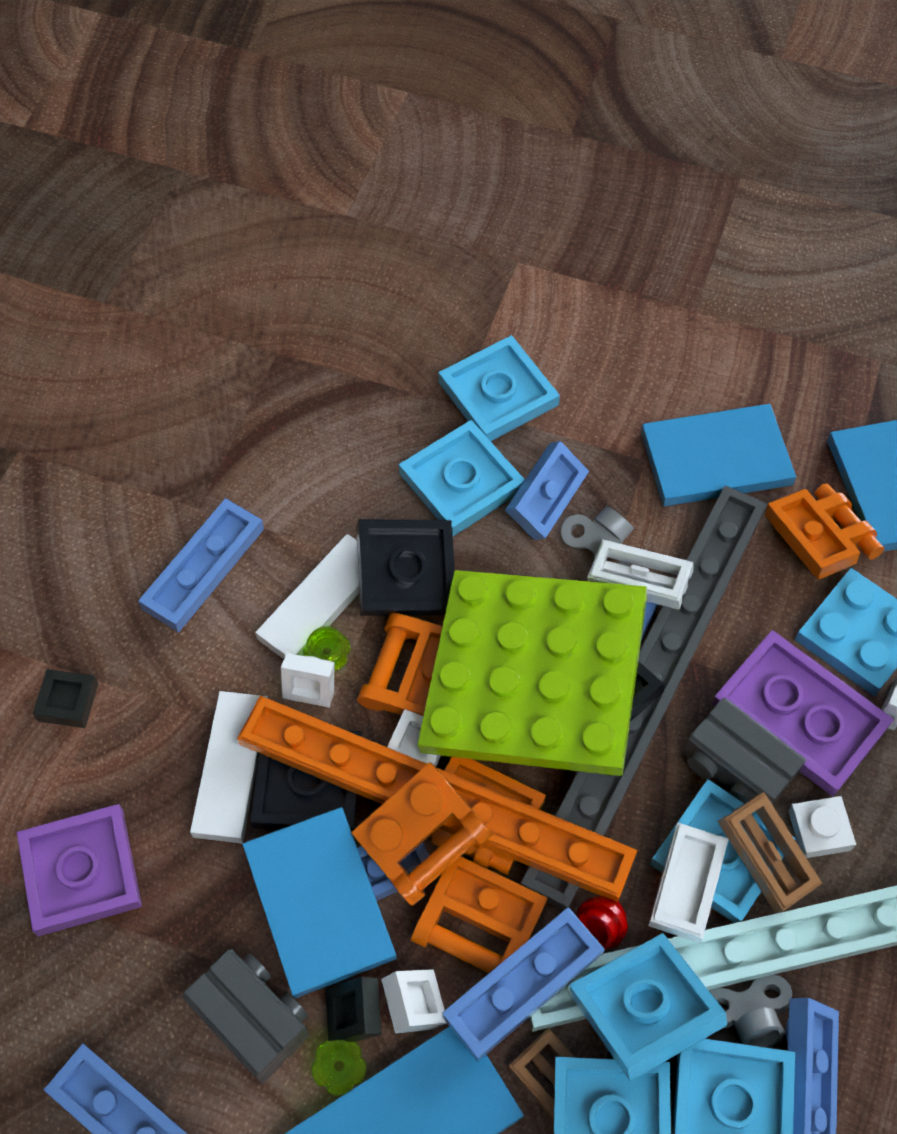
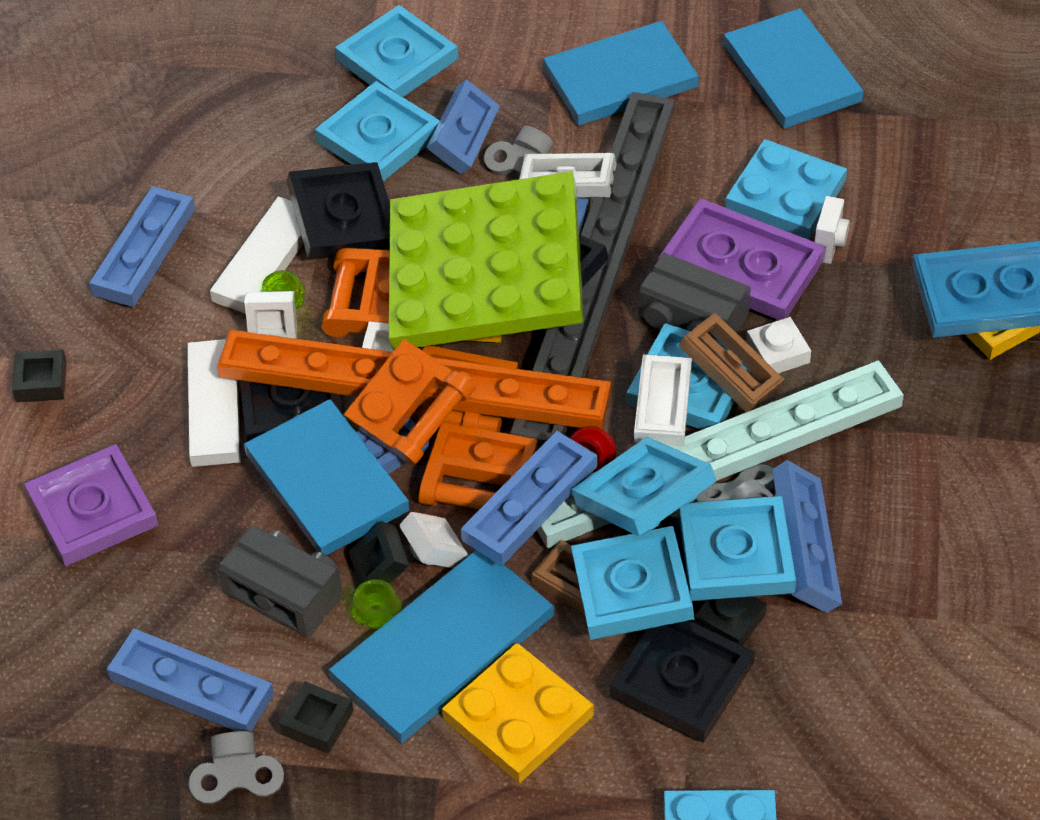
camera: 10 degrees left, 10 degrees down
(814, 535) = (731, 112): orange plate -> none

